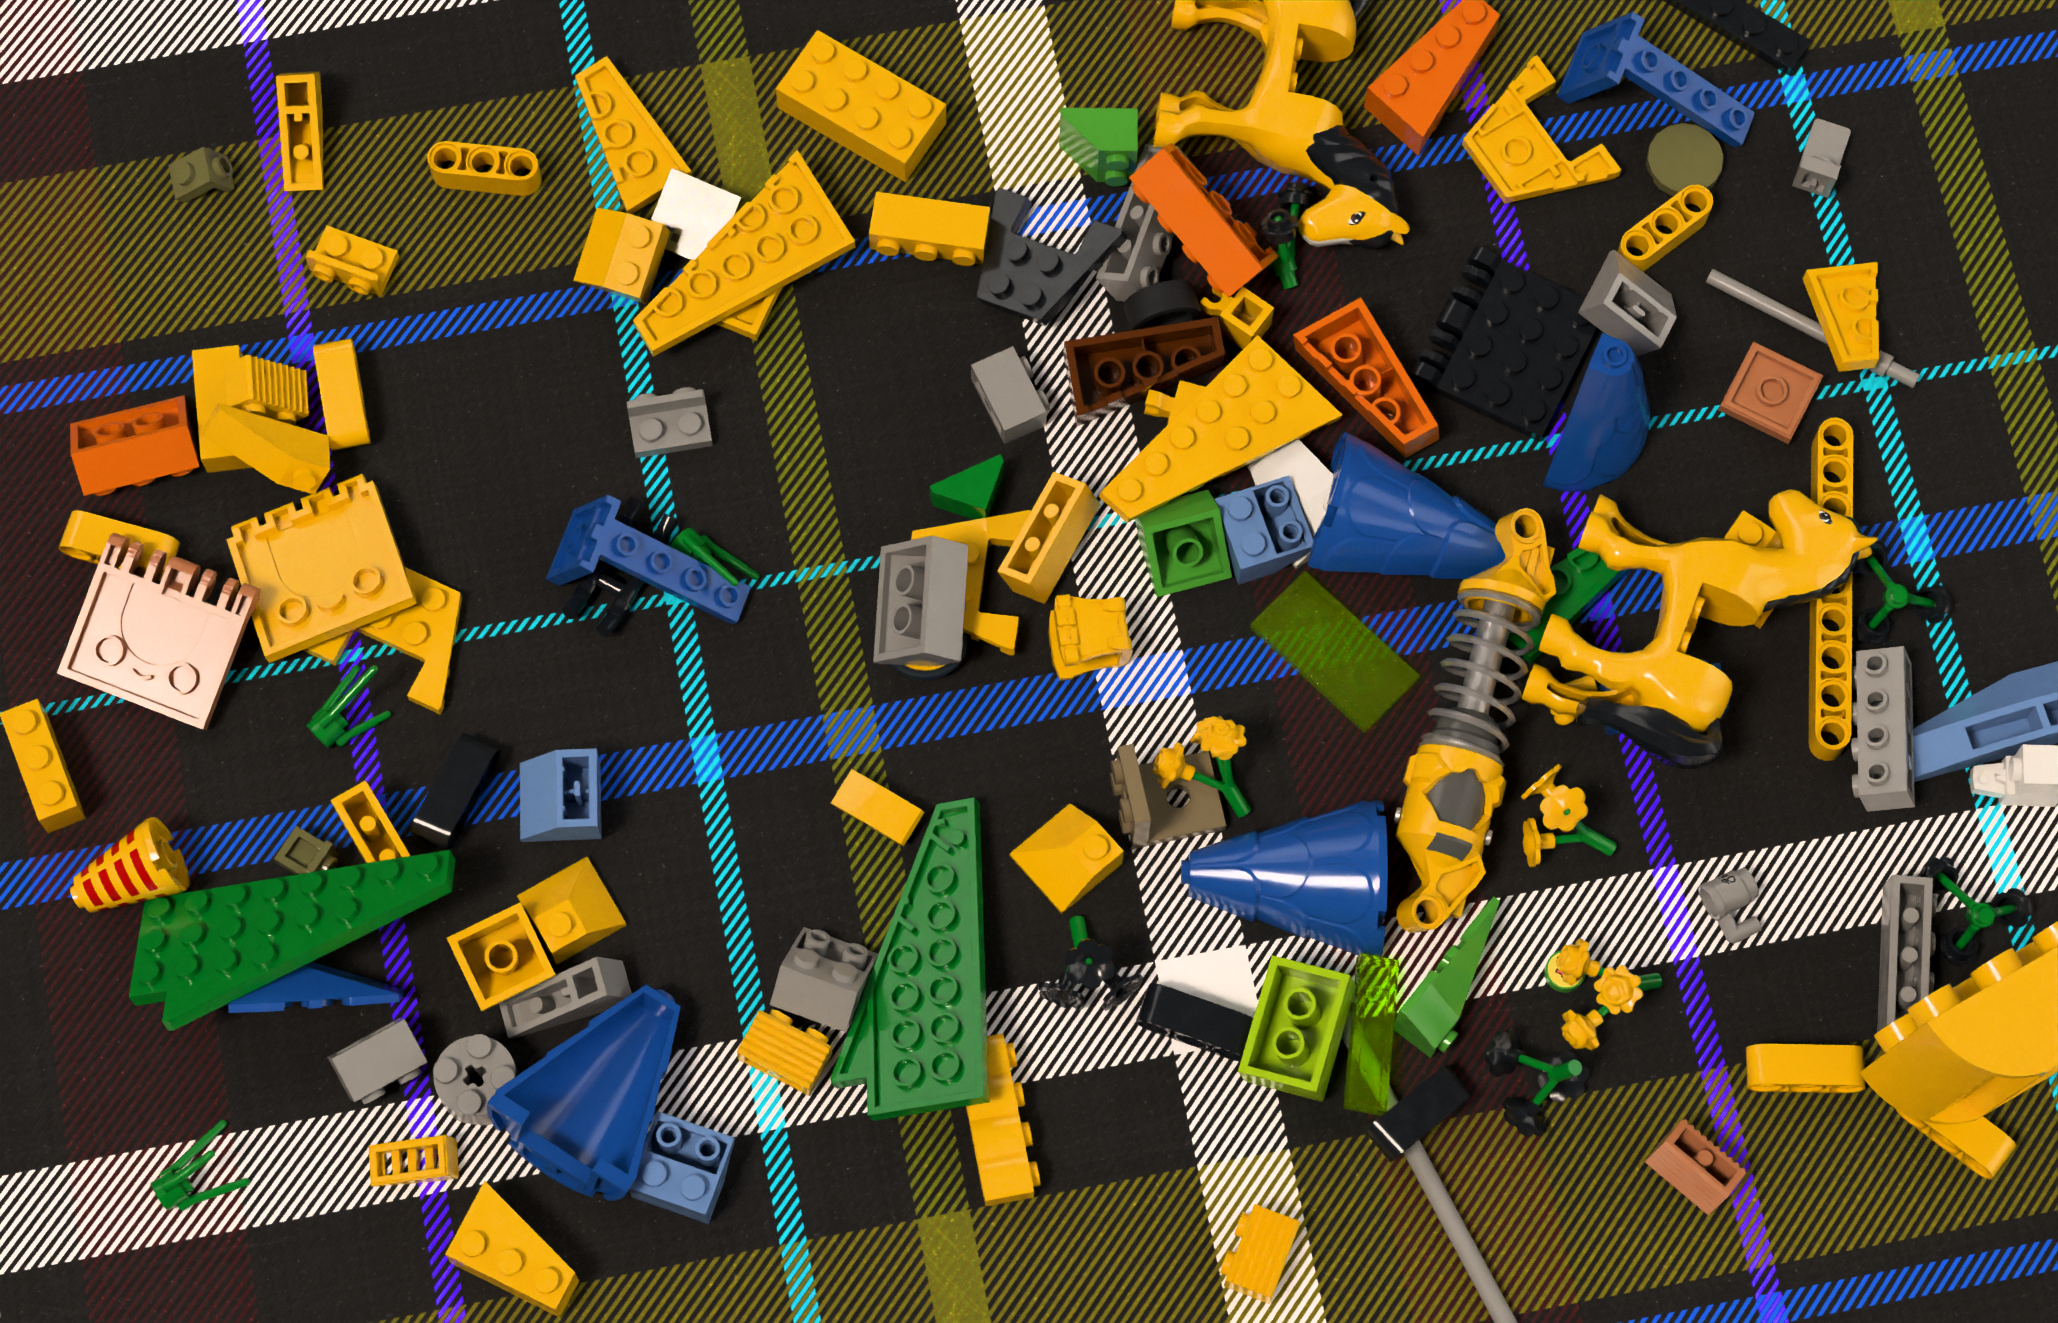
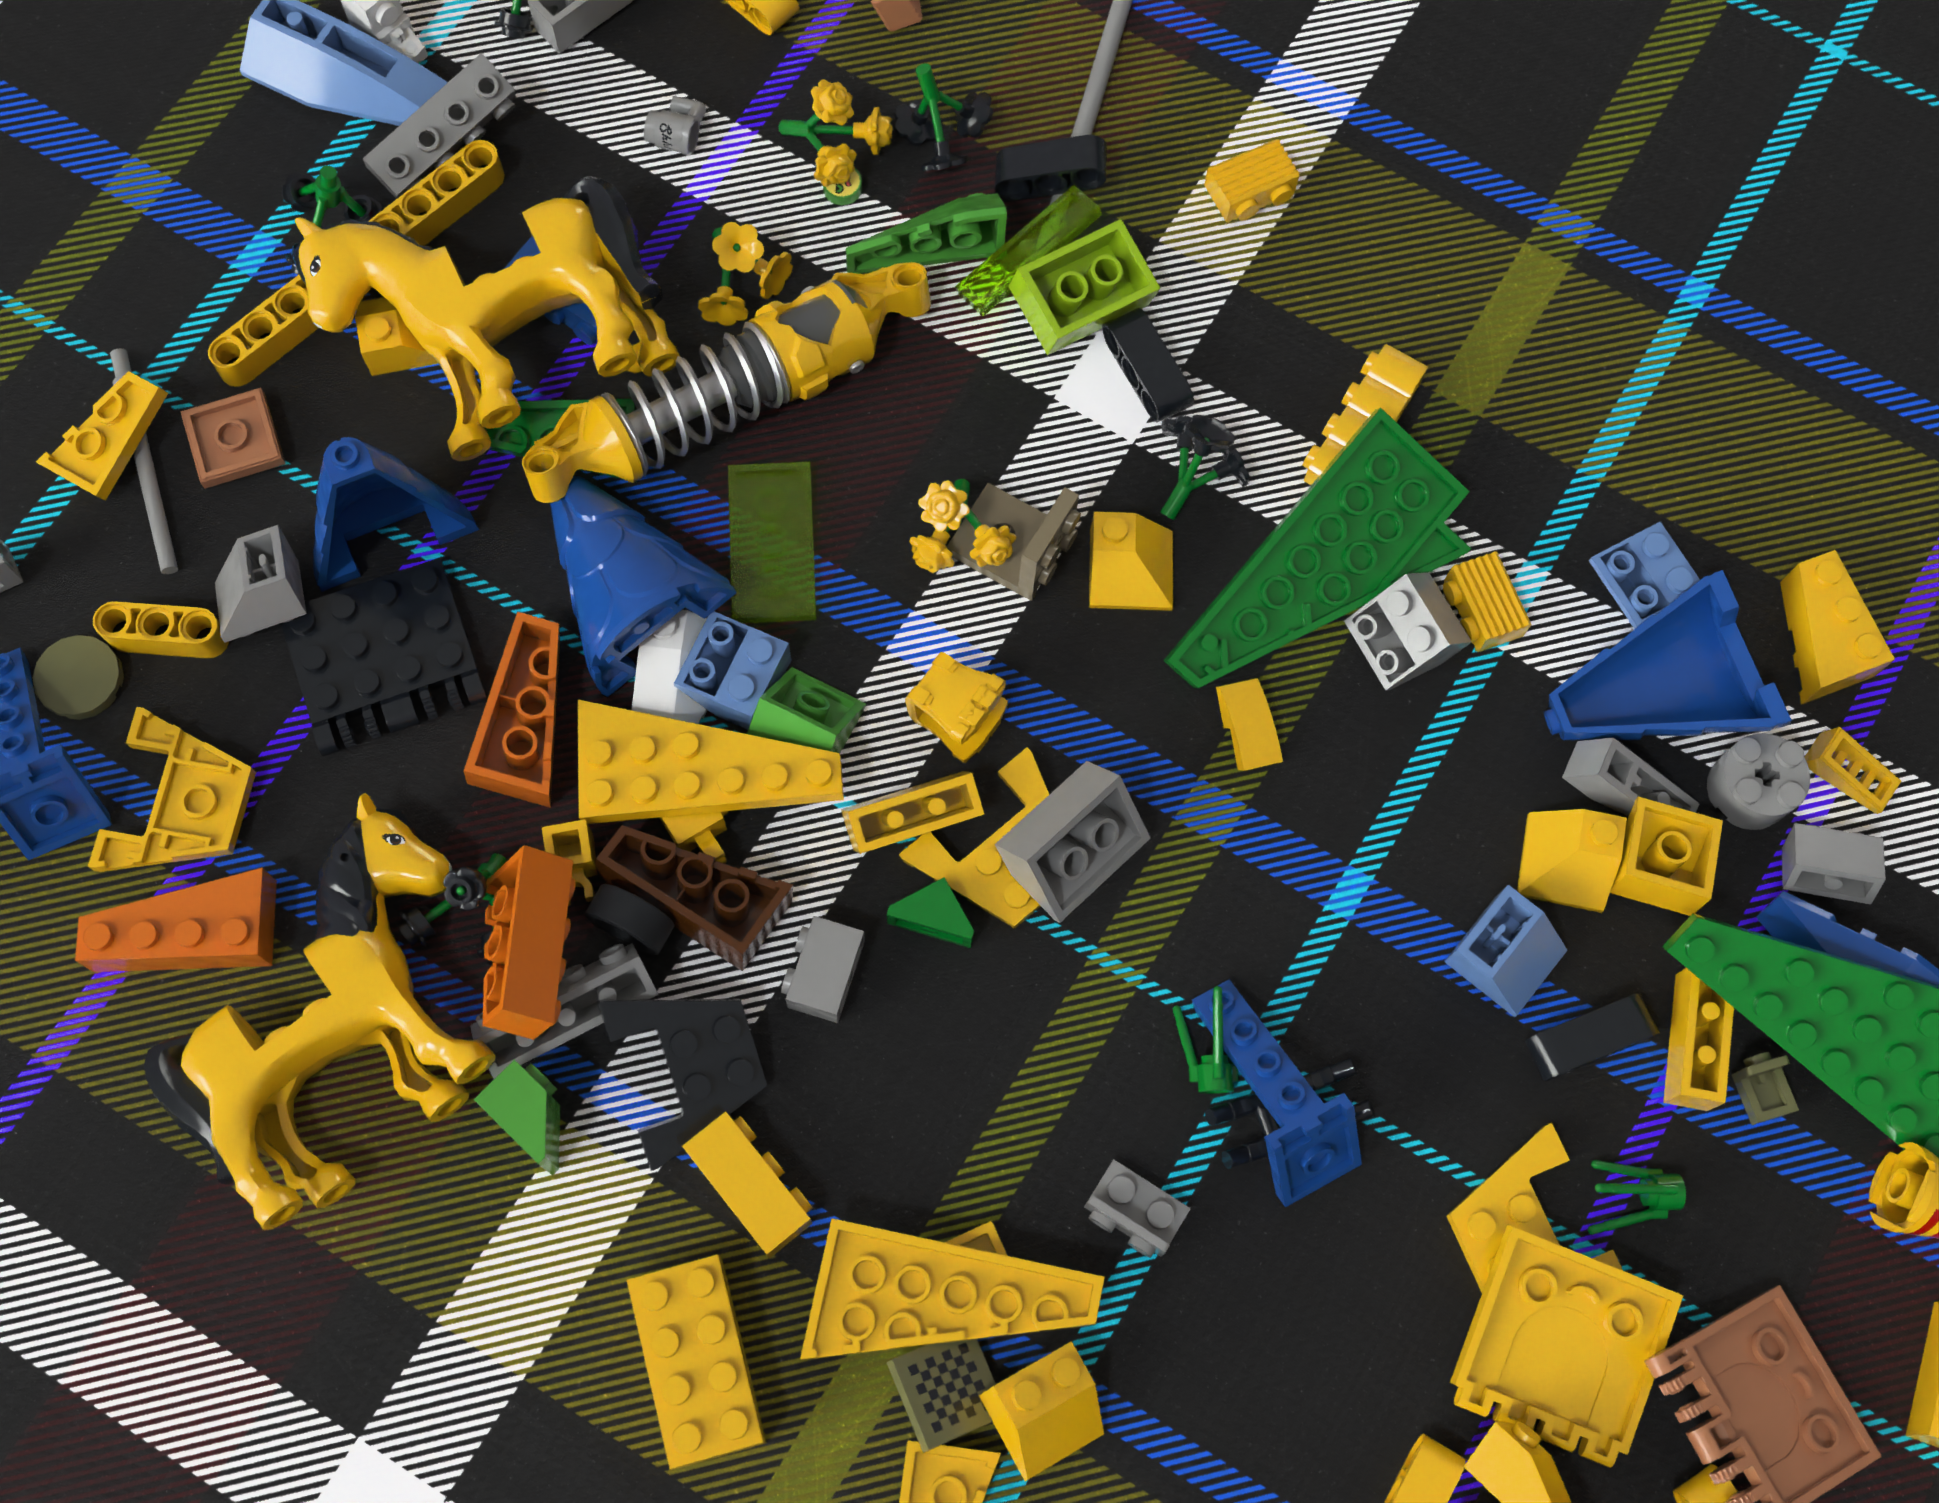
camera: 140 degrees left, 0 degrees up
(1305, 877) = (959, 397): blue cone -> none

